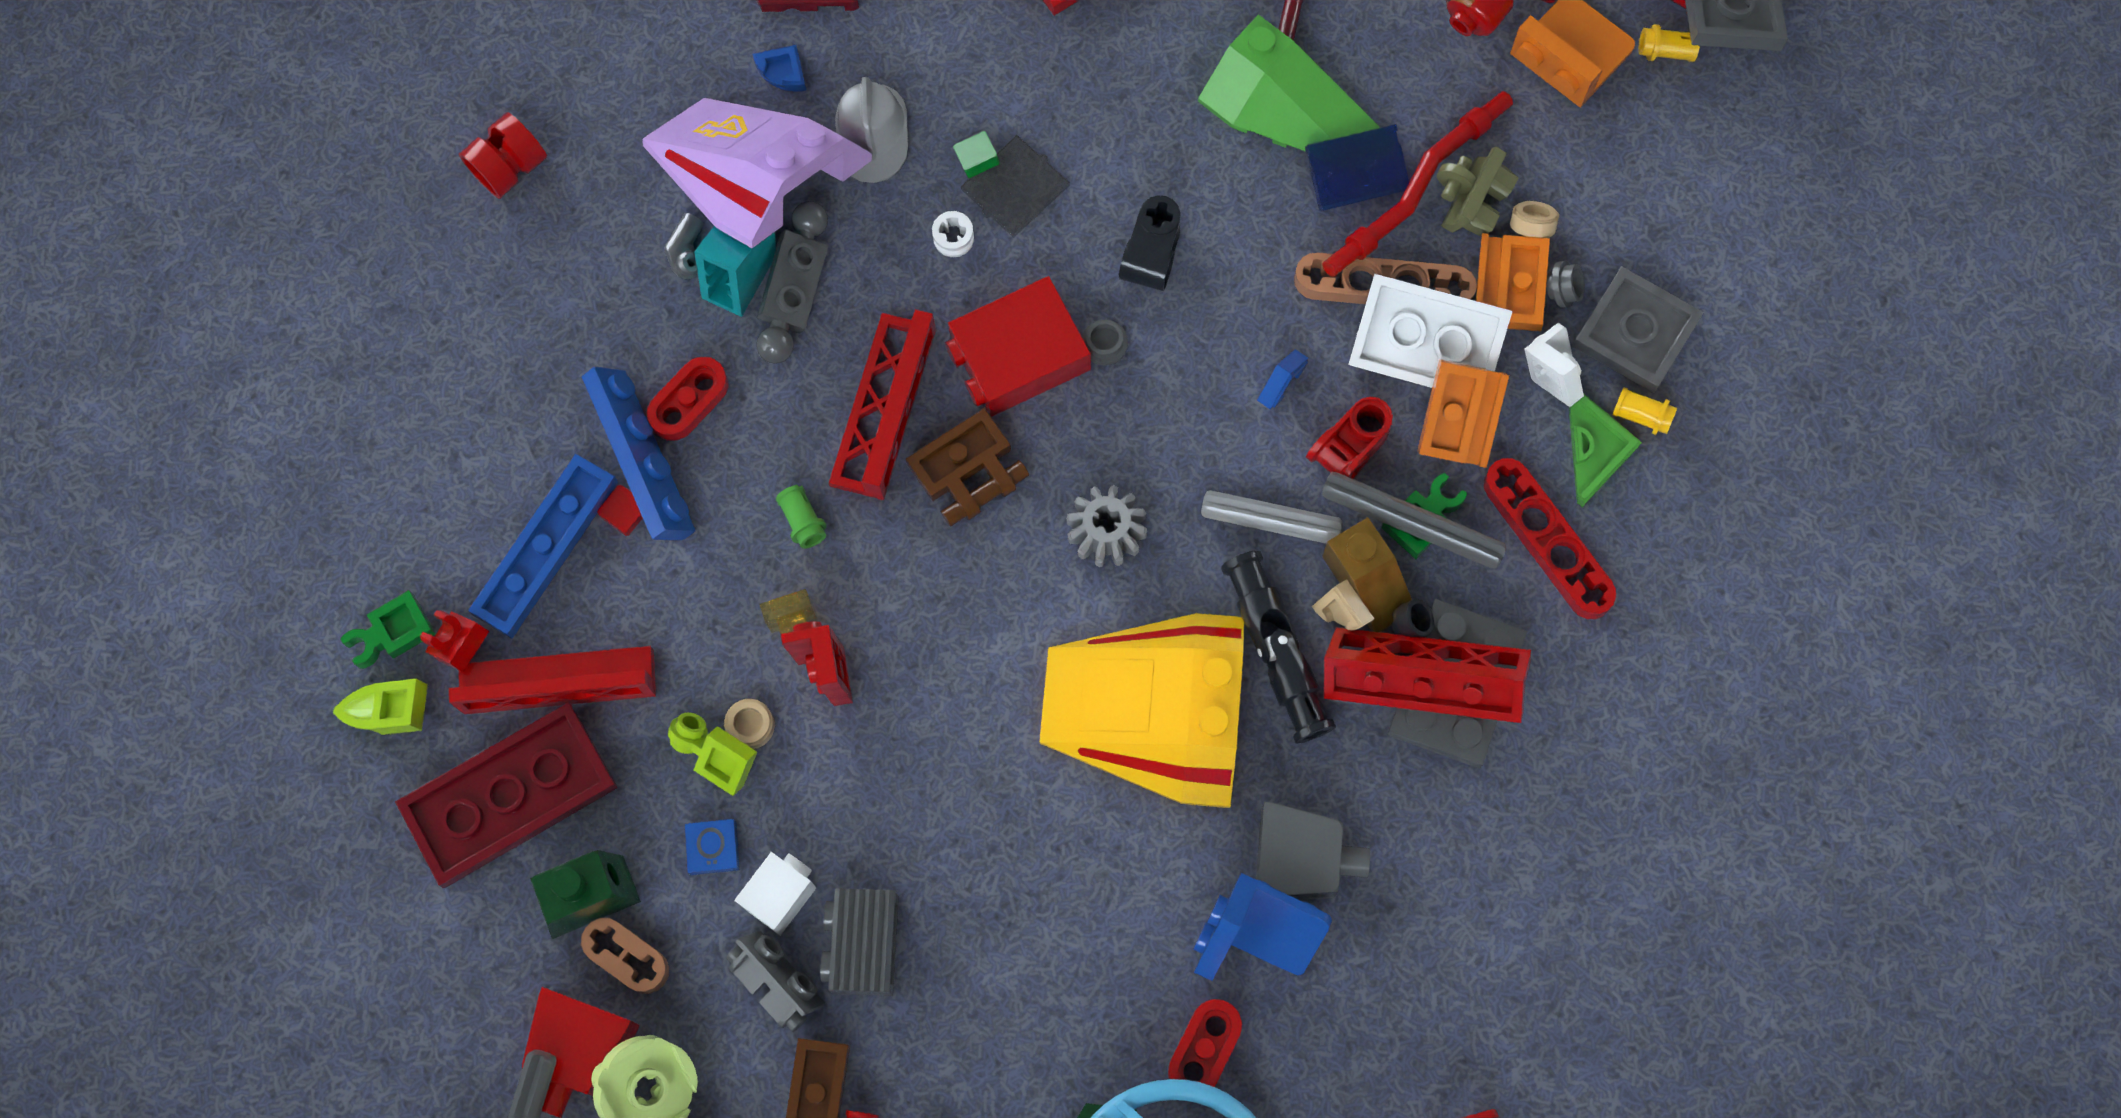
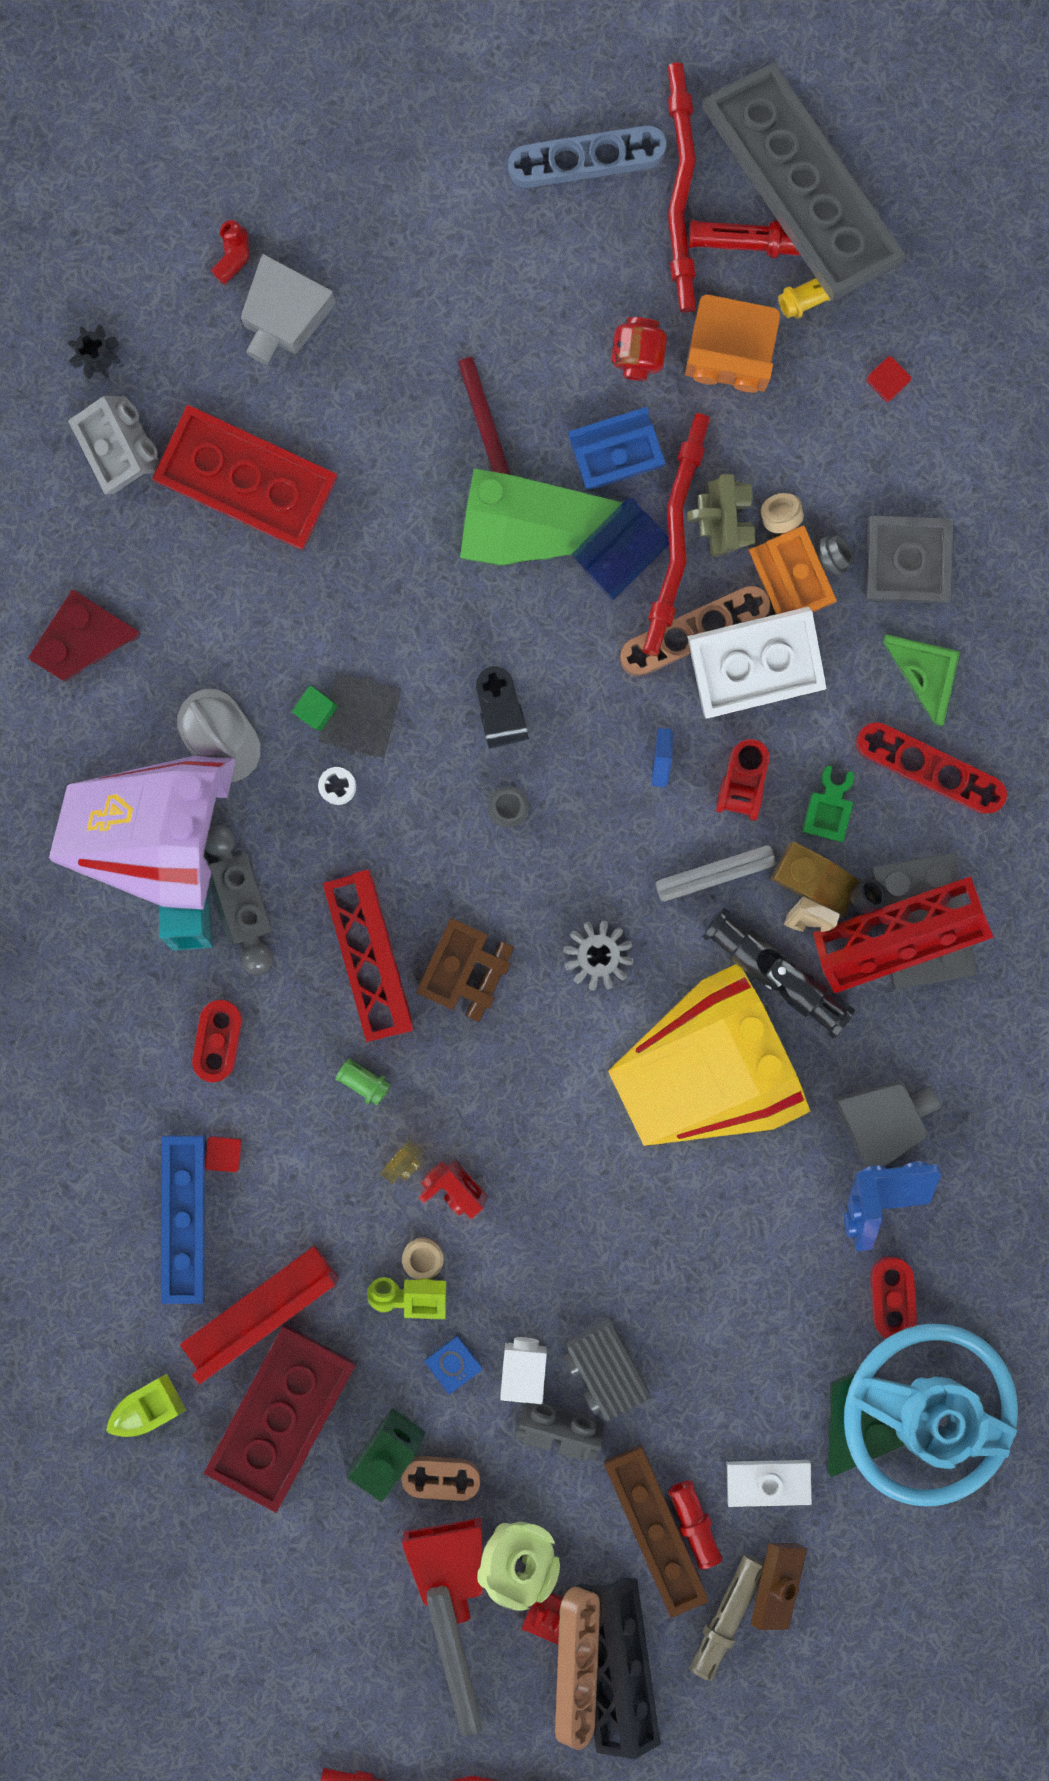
camera: 40 degrees left, 15 degrees up
(394, 628) = (112, 1346): green plate -> none
(455, 640) = (166, 1329): red tile -> none
(638, 454) = (208, 1107): blue plate -> none
(680, 246) = (134, 924): flat silver arm -> none
(781, 67) = (113, 723): blue tile -> none
(1018, 347) = (445, 852): red brick -> none
(1405, 80) = (616, 449): none -> blue plate
(1414, 520) = (826, 820): dark grey axle -> none
(1462, 413) = (815, 710): orange plate -> none
(1553, 365) = (862, 631): white bracket -> none
(1645, 411) = (949, 624): yellow pin -> none
(1709, 160) = (888, 379): none -> red piece

